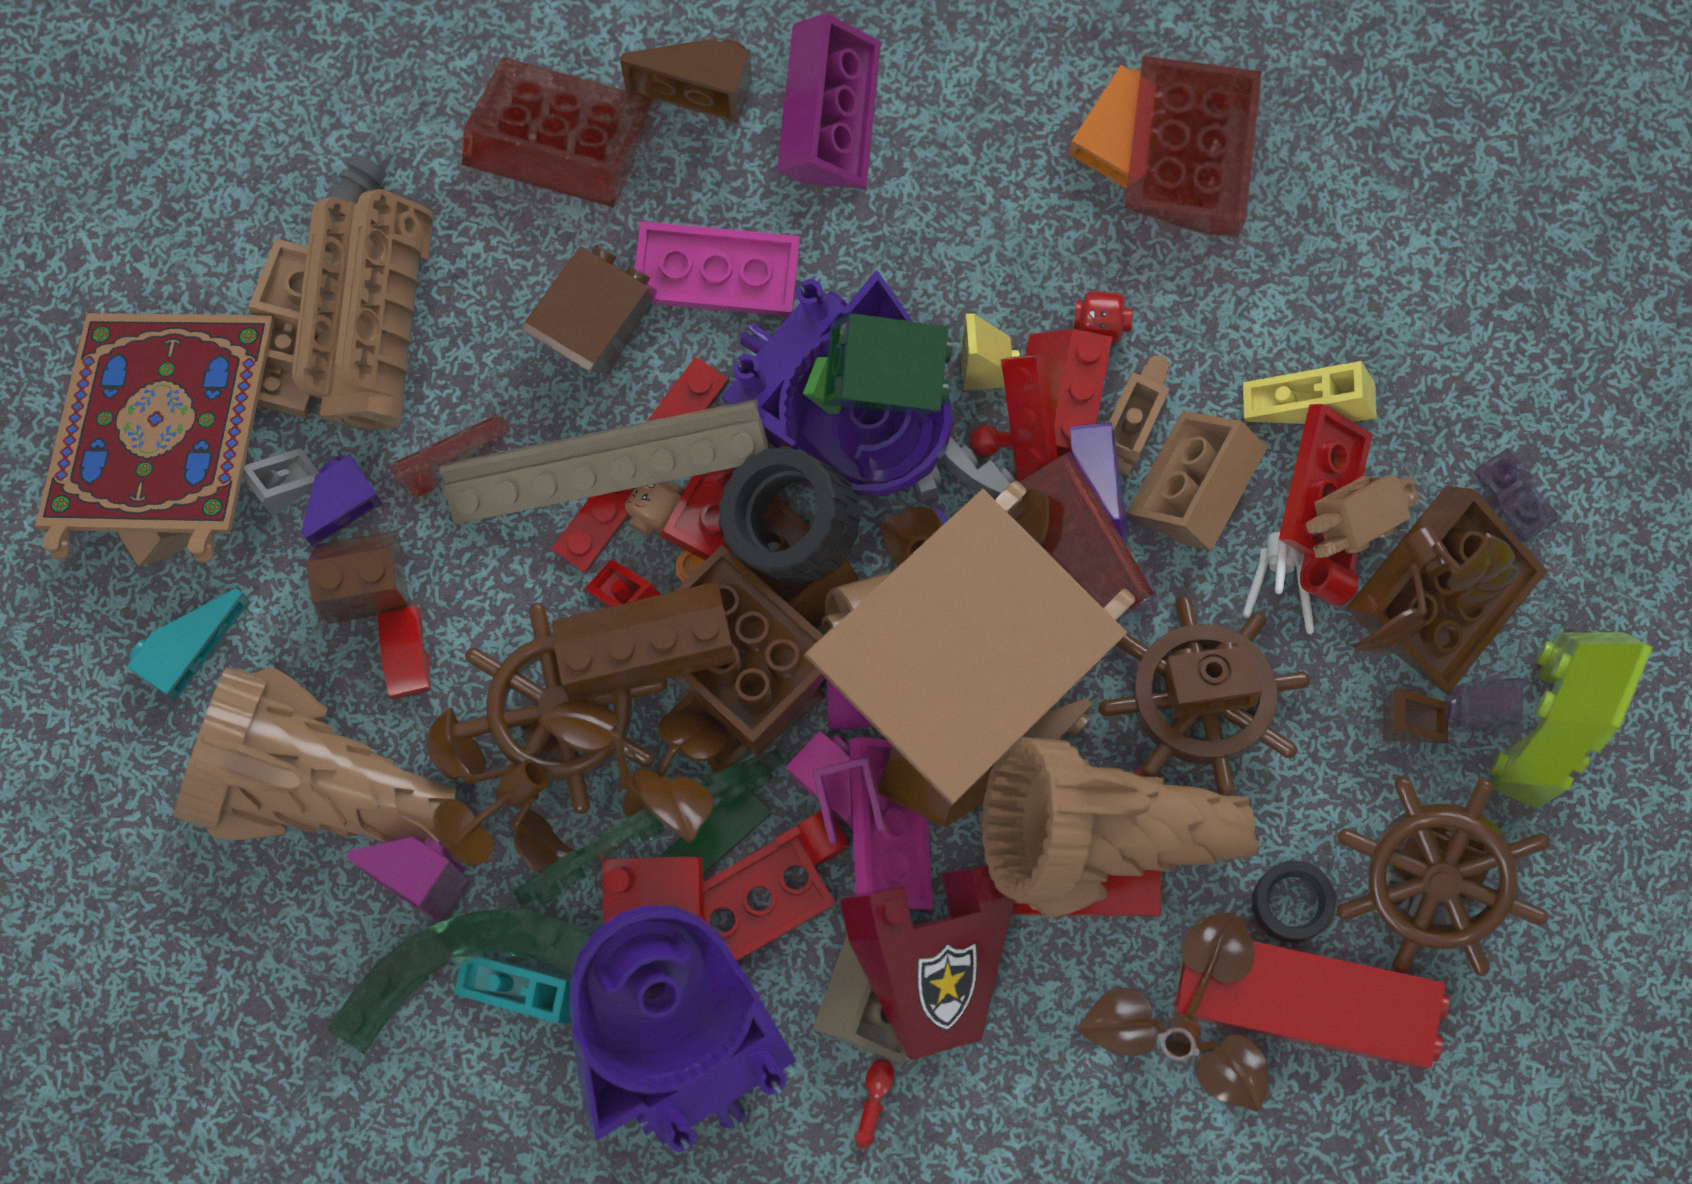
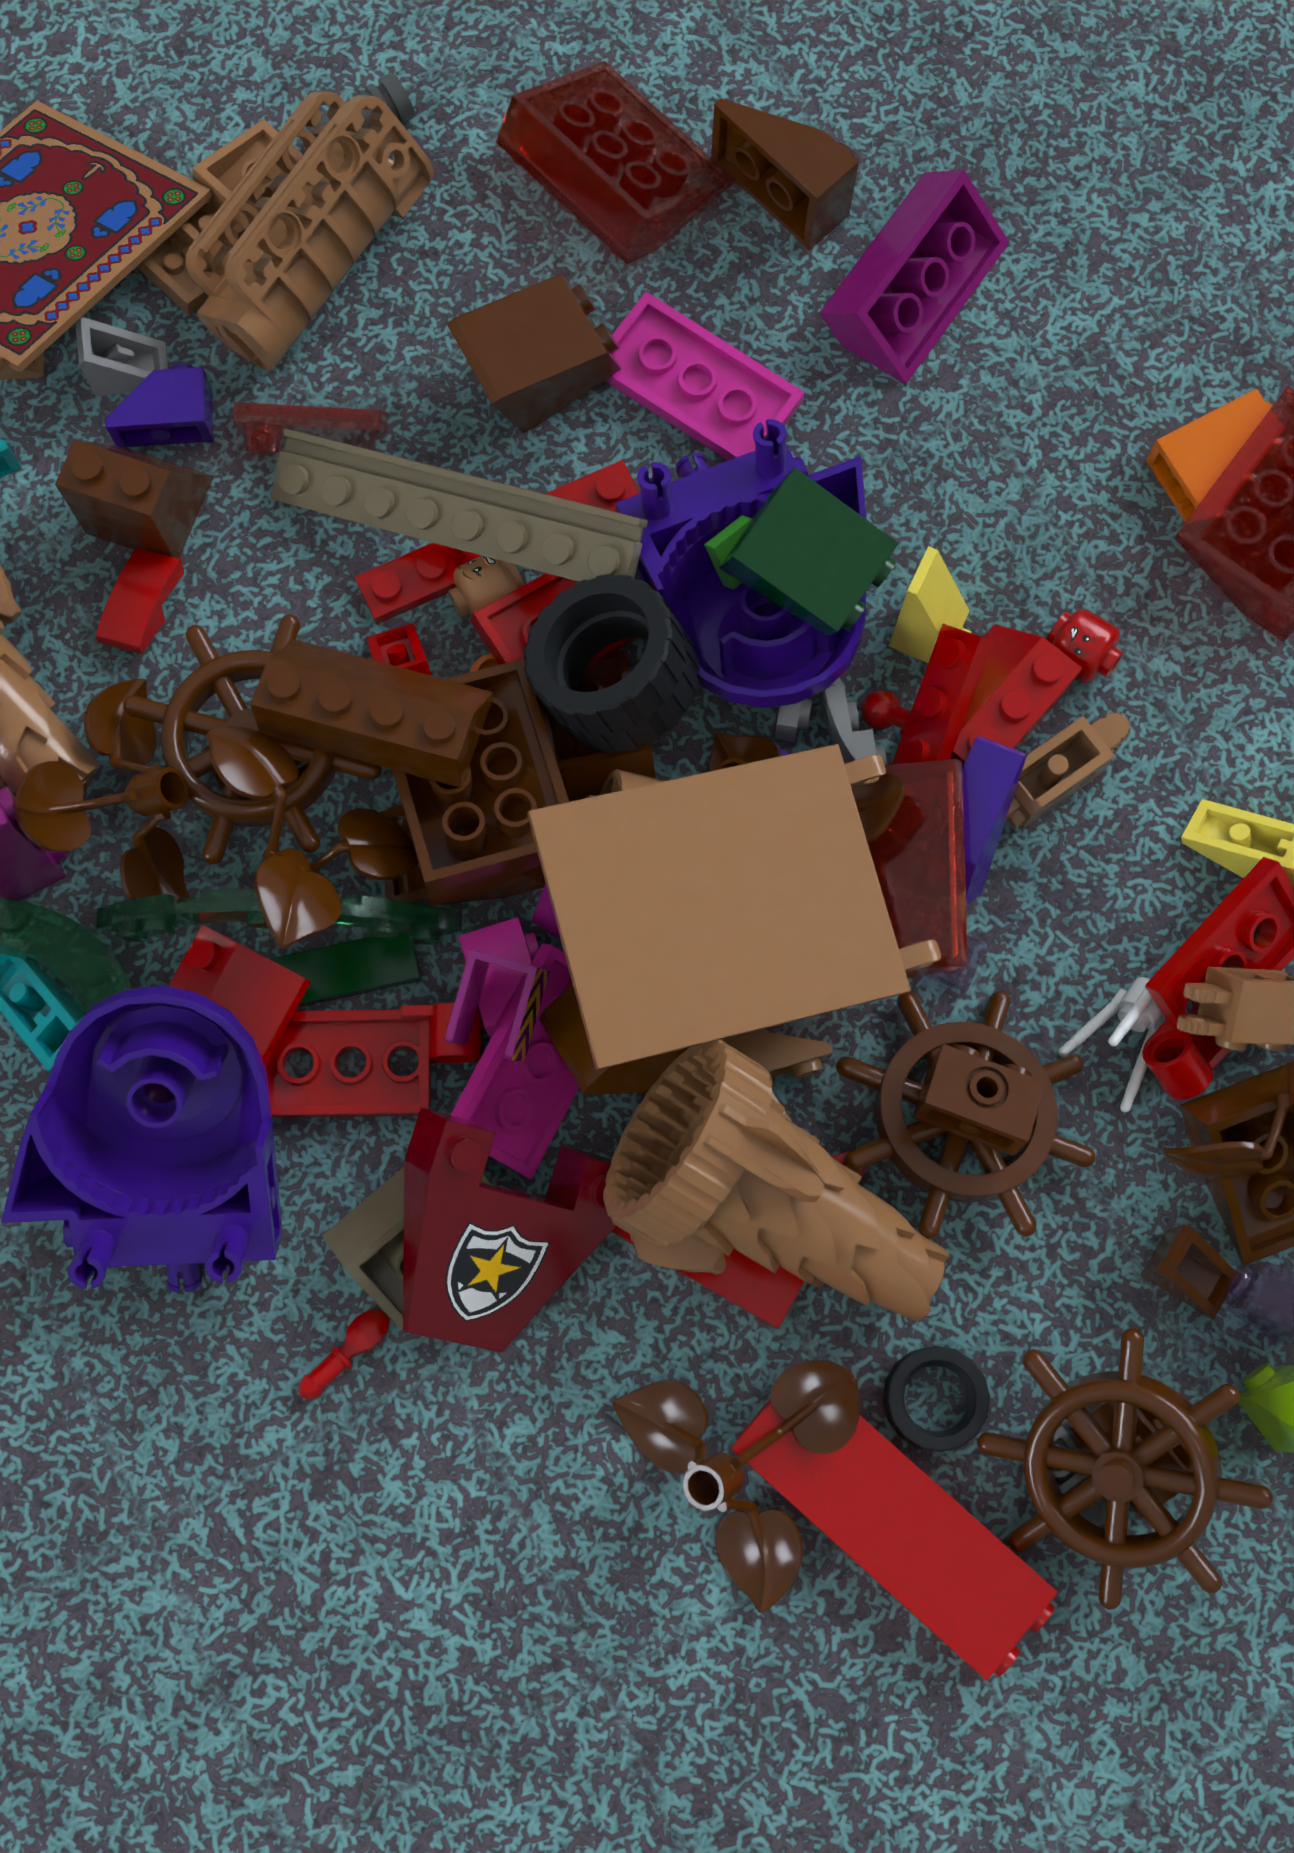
camera: 30 degrees right, 0 degrees up
(1198, 479) = (1093, 875): medium nougat slope -> none

